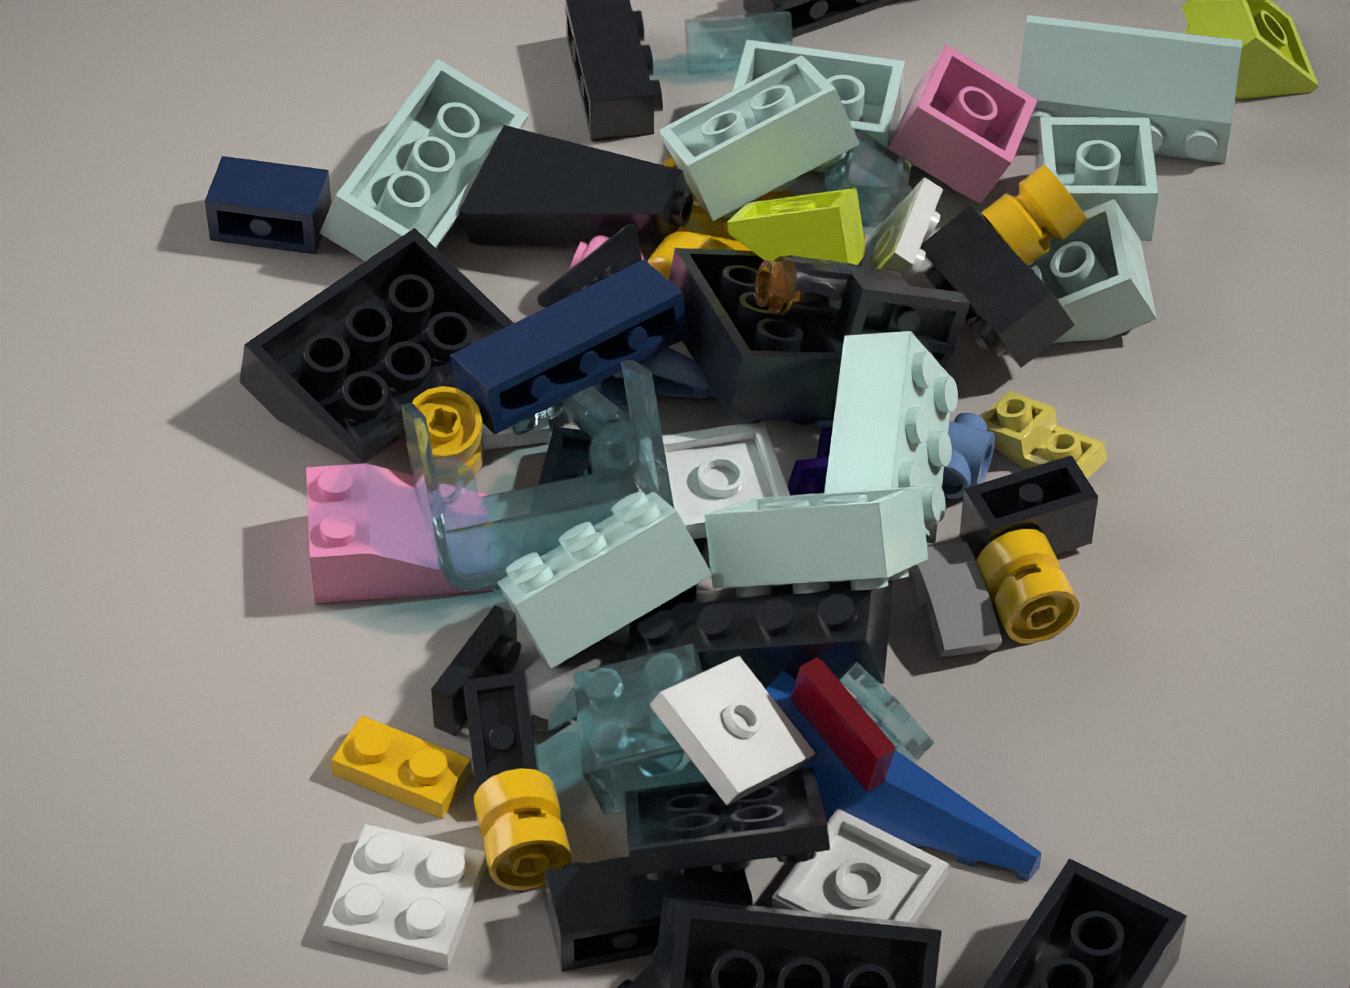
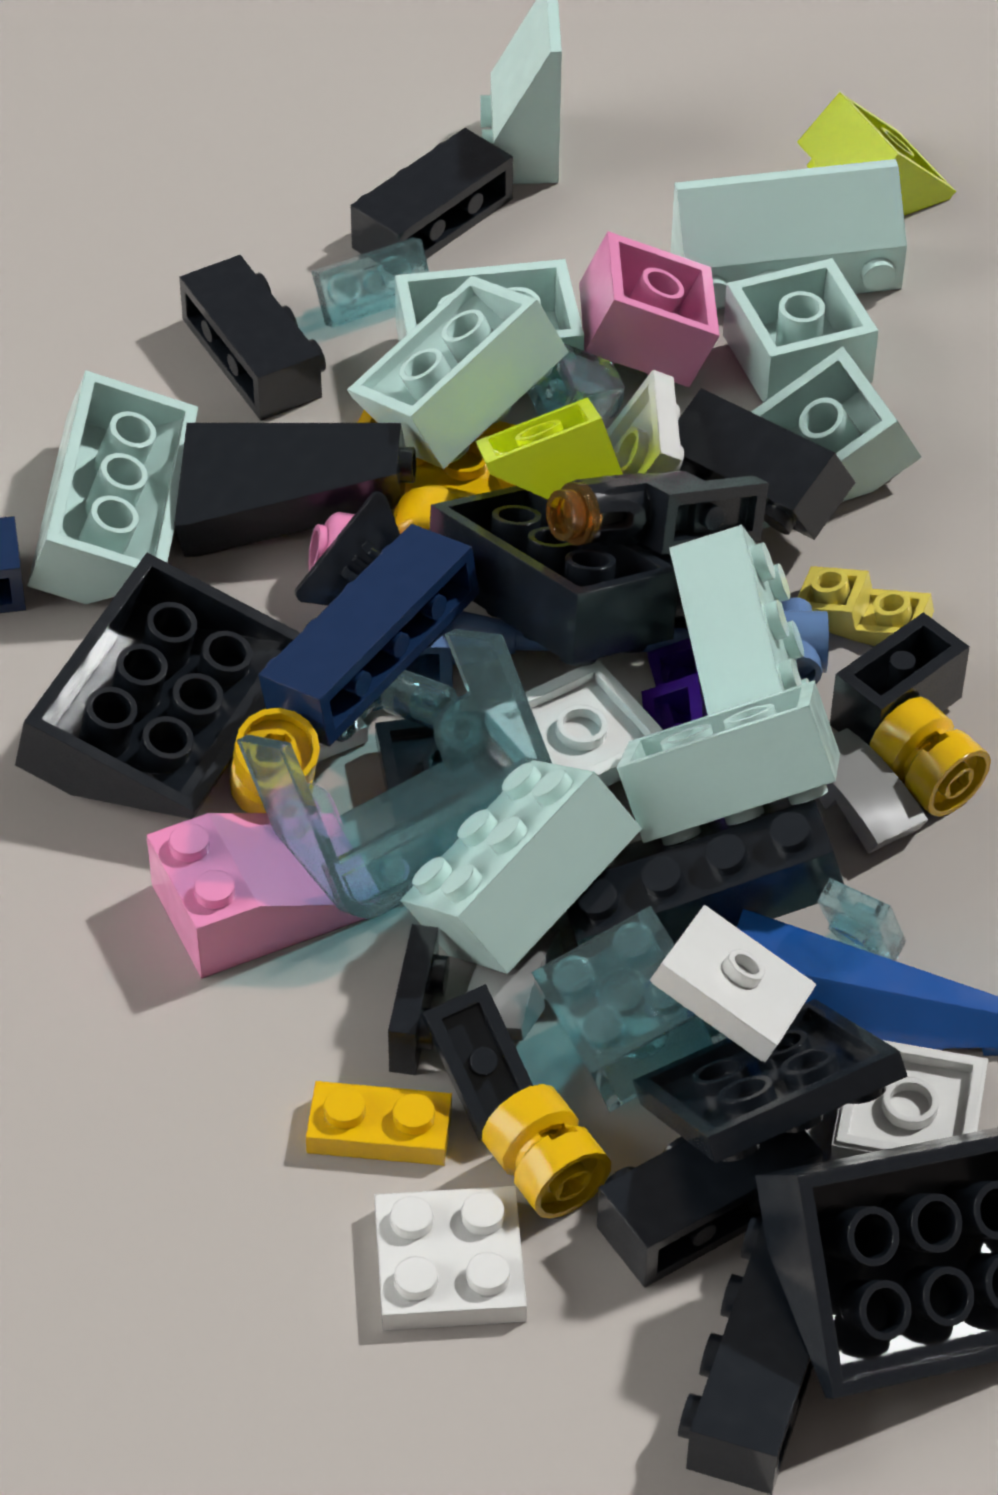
camera: 20 degrees left, 0 degrees up
(843, 724) = (835, 945): dark red tile -> none
(1035, 215) = (777, 377): yellow wheel -> none

